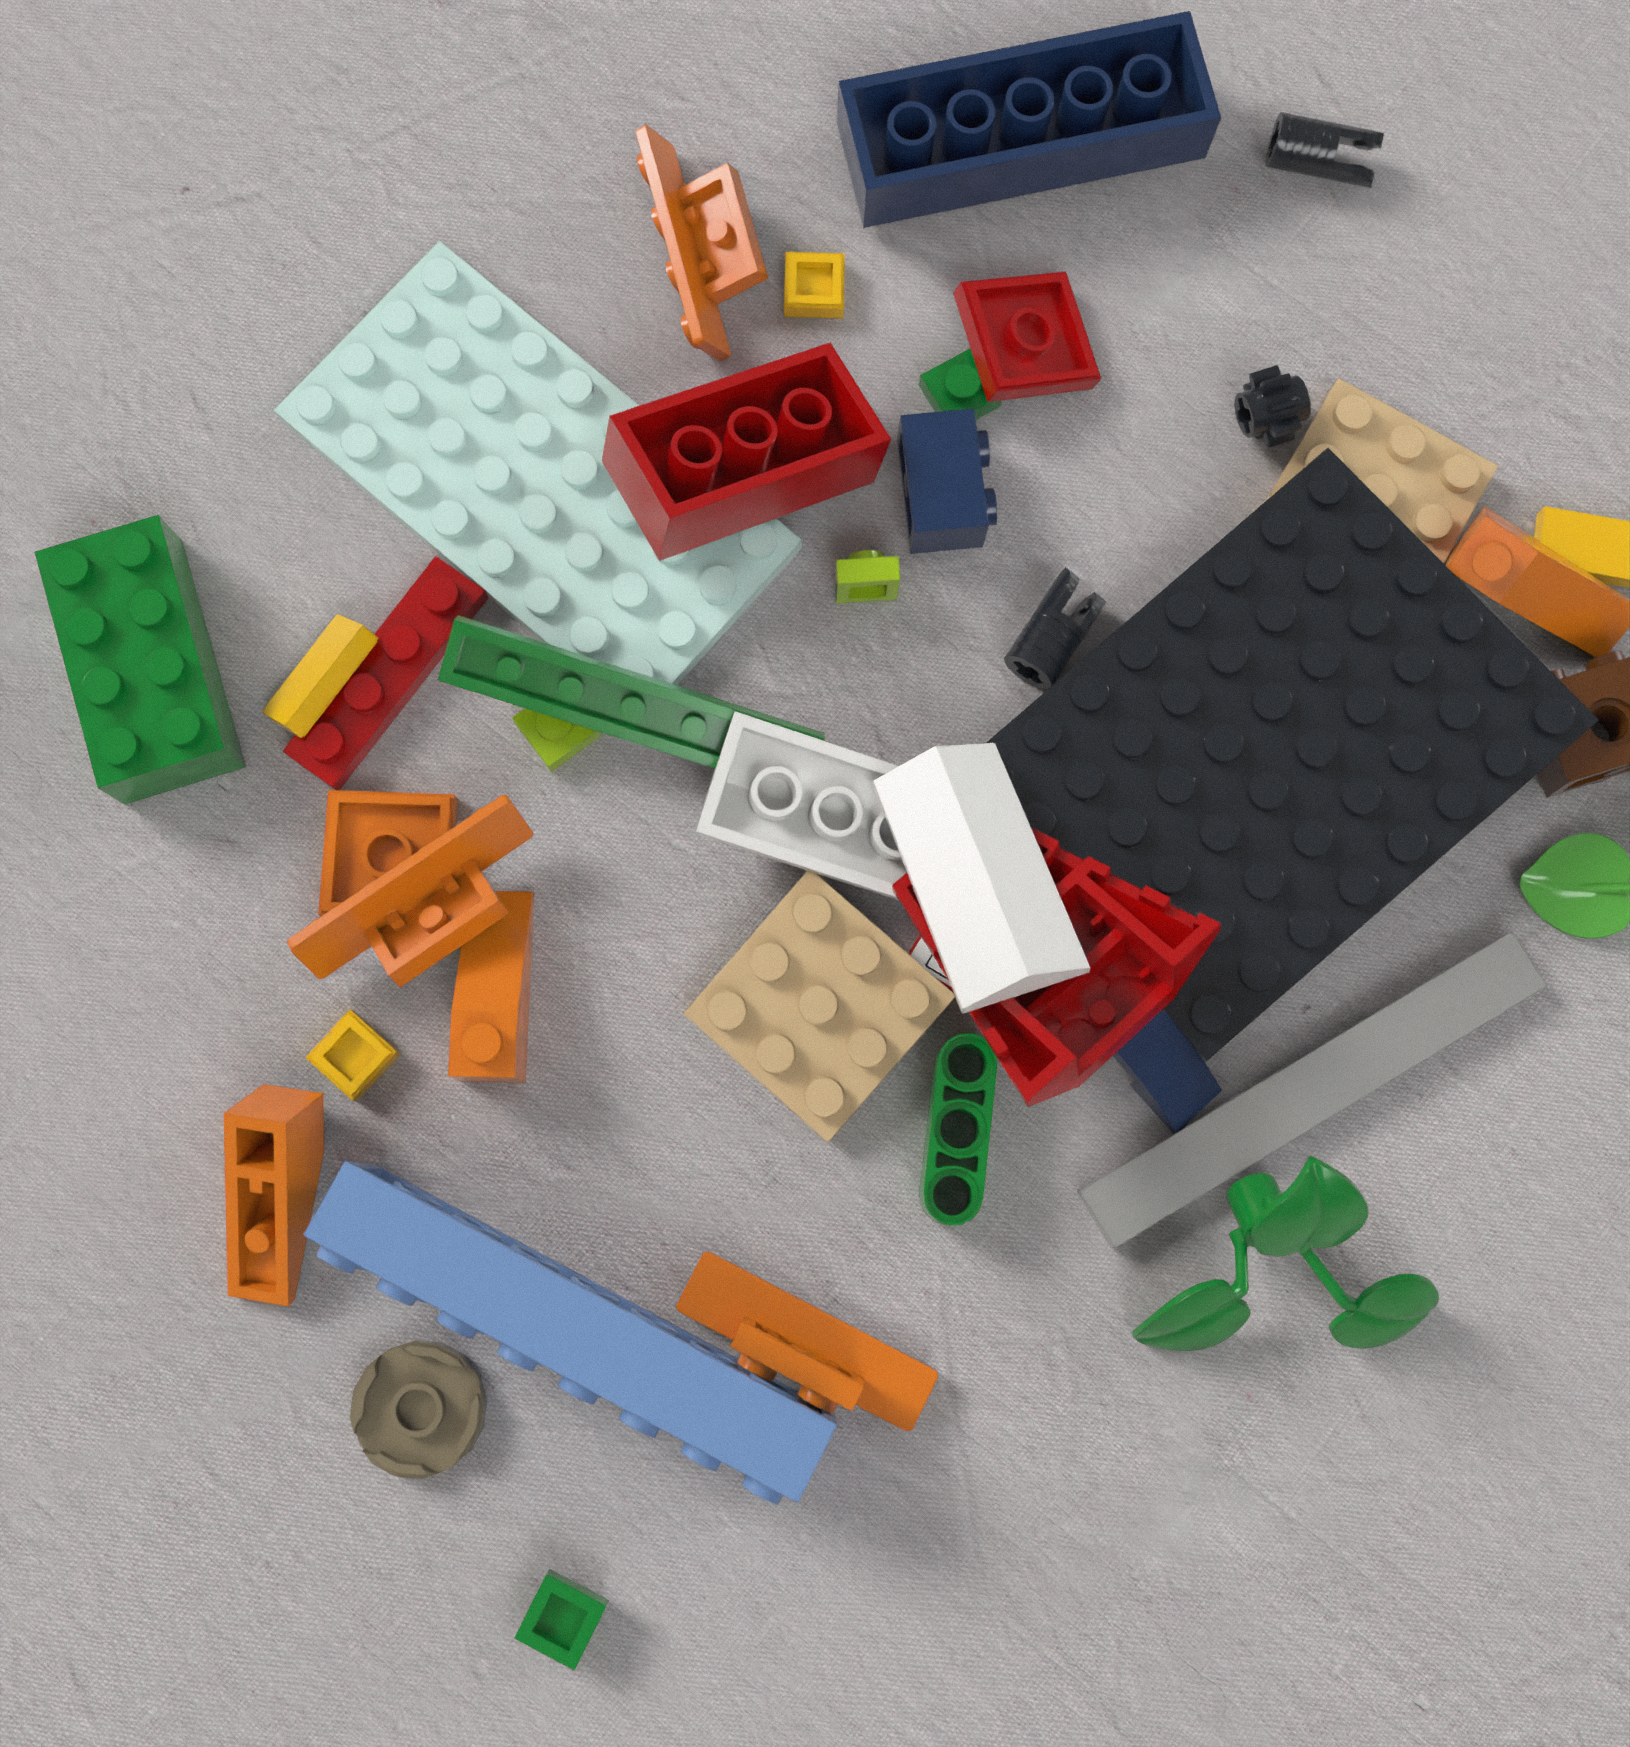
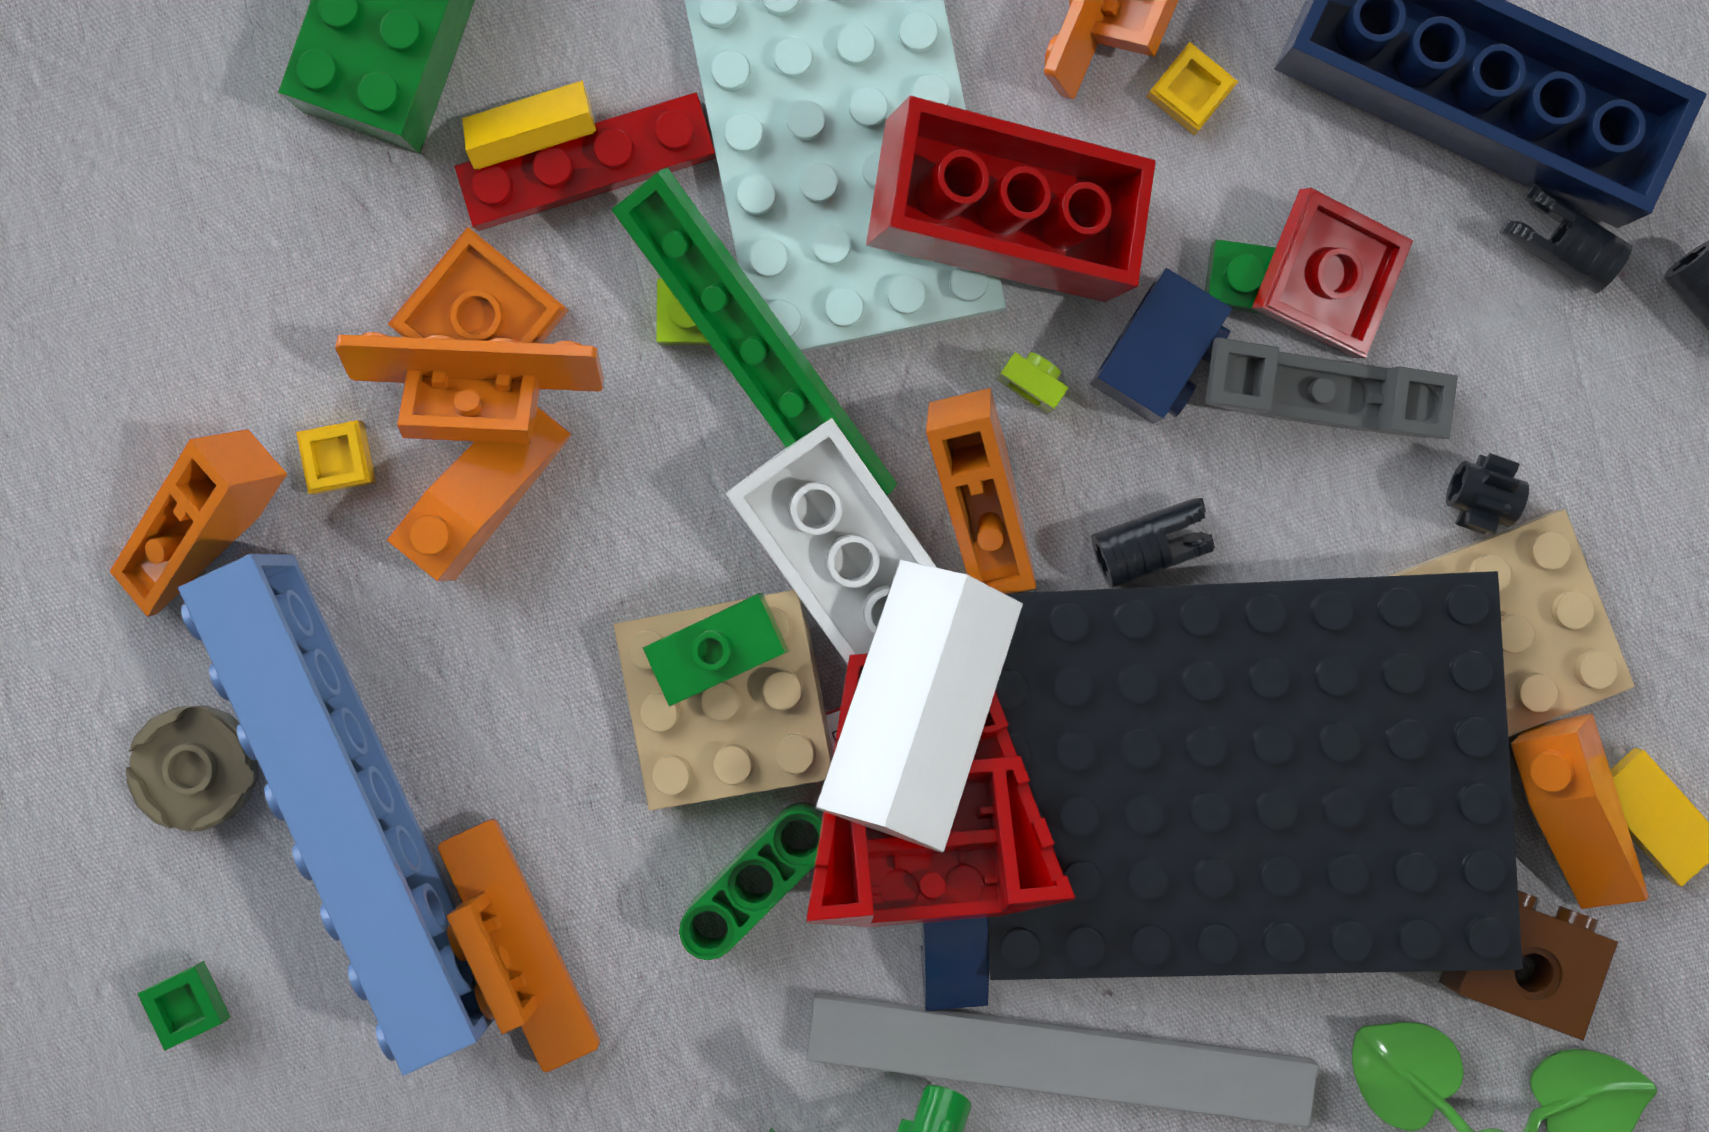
camera: 45 degrees right, 10 degrees up
(782, 961) = (715, 649): none -> green plate
(891, 684) = (980, 490): none -> orange slope
(1096, 423) = (1330, 391): none -> dark grey slope
(1187, 188) = (1576, 246): none -> black hinge

